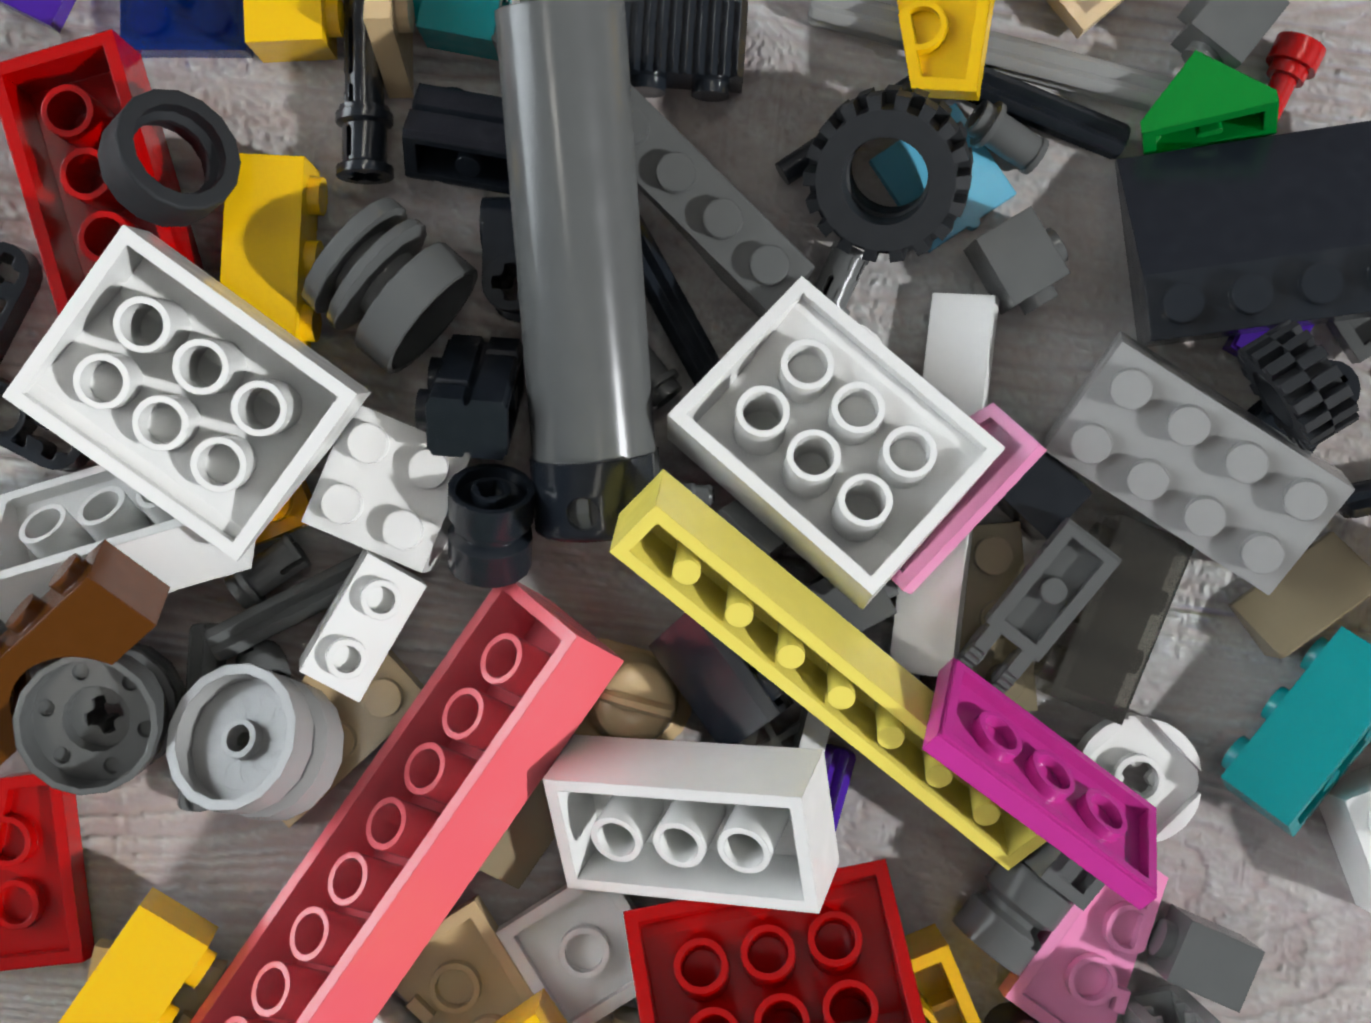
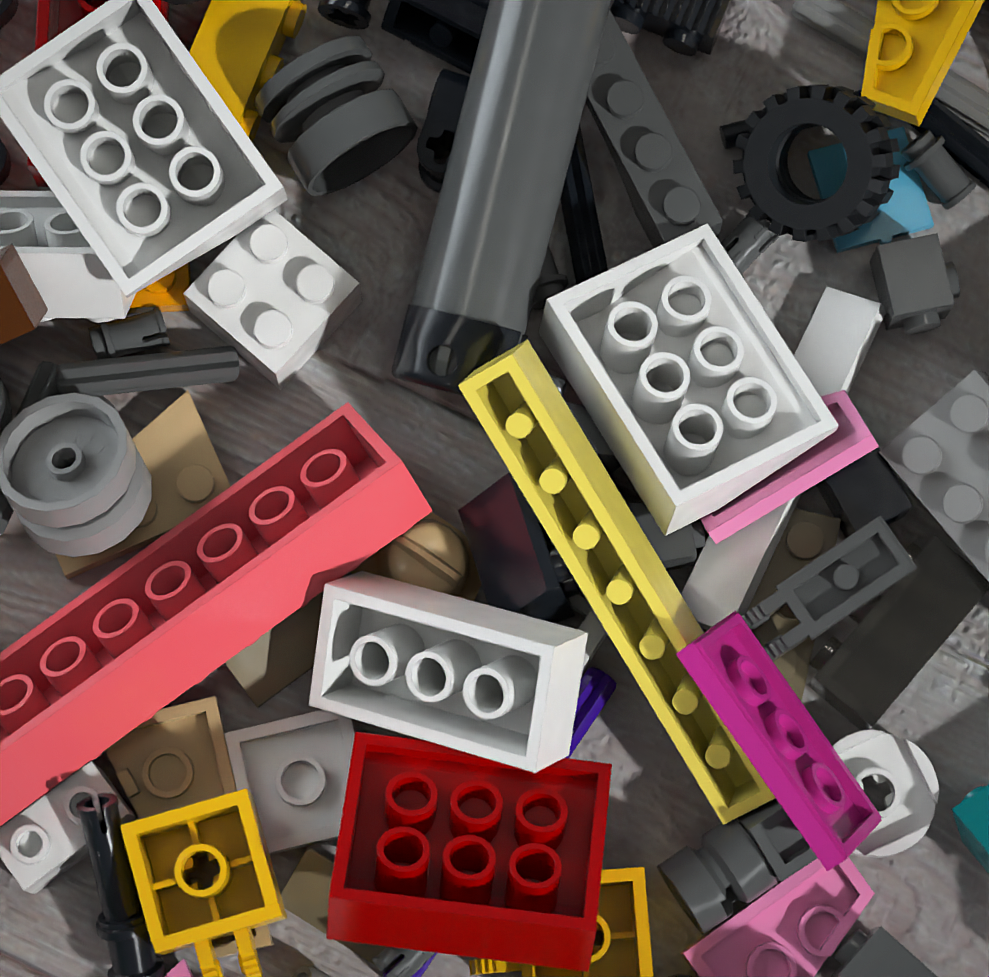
camera: 15 degrees right, 10 degrees down
(361, 625) = (206, 401): white brick -> none
(472, 397) = (376, 235): black brick -> none
(490, 525) = (351, 358): black wheel -> none

